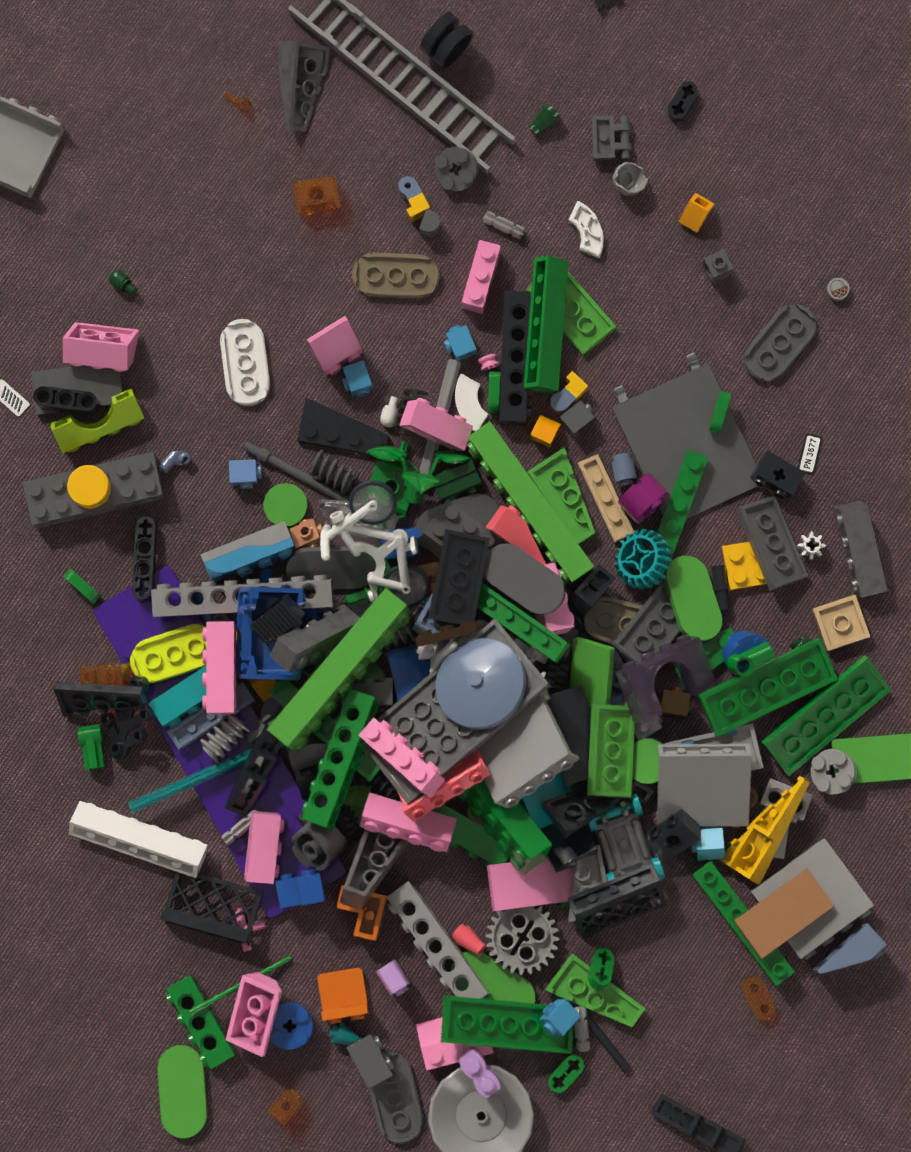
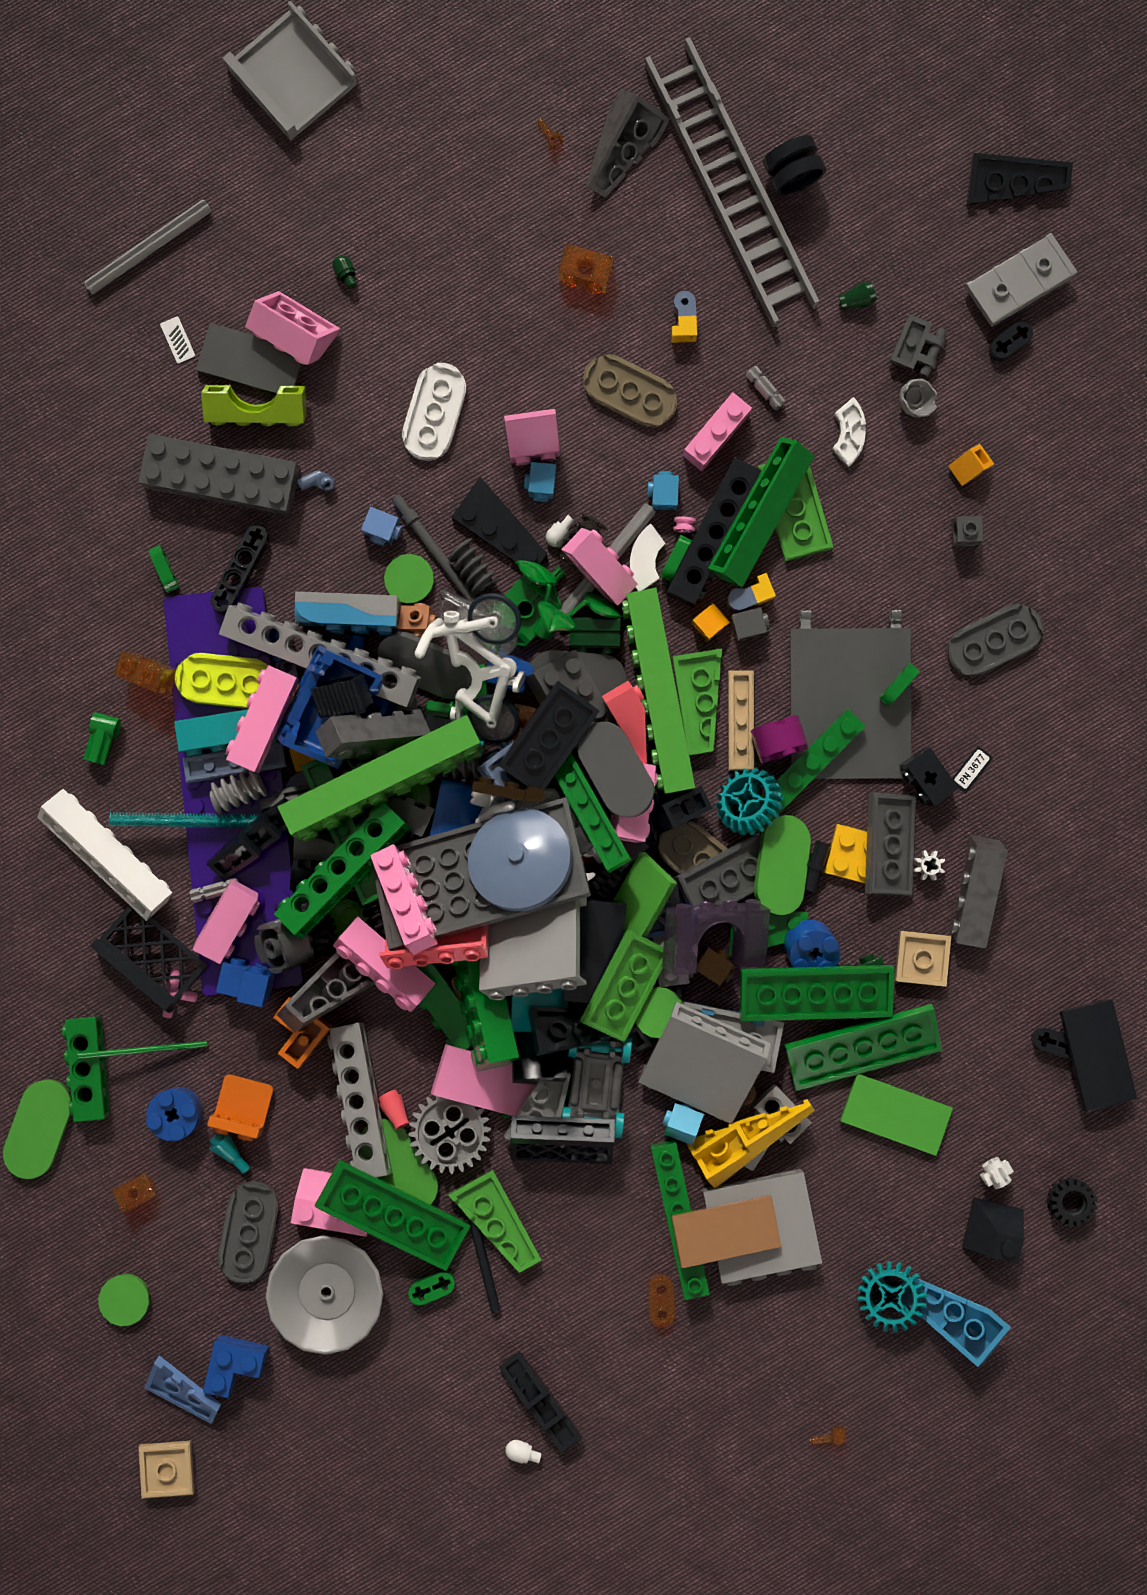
camera: 20 degrees right, 5 degrees up
(56, 396) = (223, 360): black beam -> none
(89, 486) = (212, 469): yellow head -> none
(90, 697) = (118, 687): black wing -> none
(120, 744) = (129, 750): black plant -> none
(254, 1013) = (142, 1086): bright pink slope -> none
(370, 1060) = (238, 1187): dark grey brick -> none
(393, 978) = (299, 1114): lavender brick -> none
(430, 224) = (689, 353): dark grey brick -> none
(444, 166) = (751, 318): dark grey plate -> none
(475, 1067) = (343, 1256): lavender brick -> none
(559, 1017) = (448, 1231): dark azure brick -> none
(581, 1030) = (467, 1250): light grey axle -> none
(605, 969) = (519, 1202): green beam -> none
(624, 469) = (772, 699): sand blue brick -> none
(668, 50) = (1021, 280): none -> light grey container
(673, 835) = (650, 1099): black brick -> none
(752, 659) = (813, 958): green piece -> none
(820, 771) = (831, 1114): light grey plate -> none
(838, 289) = (1080, 611): light grey tile -> none
(858, 947) = (779, 1299): sand blue slope -> none

